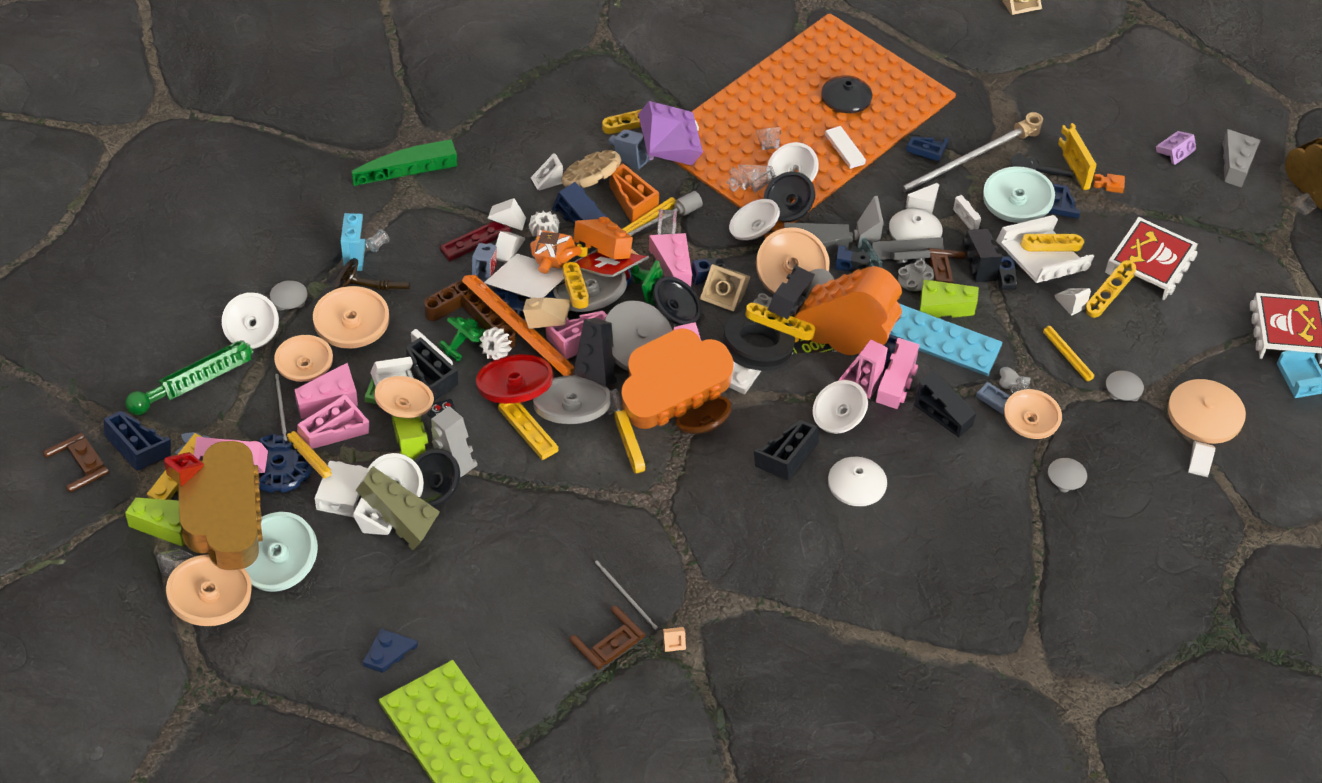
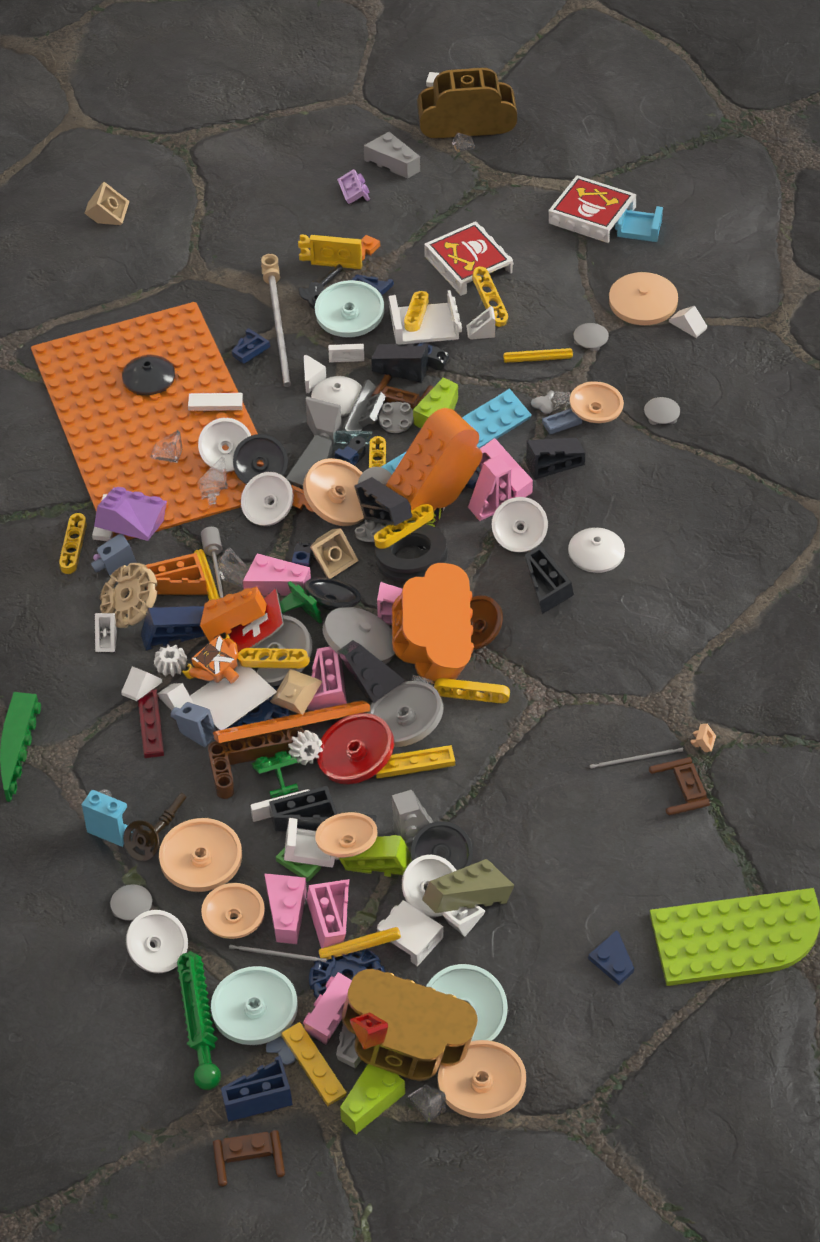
camera: 60 degrees left, 0 degrees up
(217, 407) = (254, 1005): none -> light aqua dish

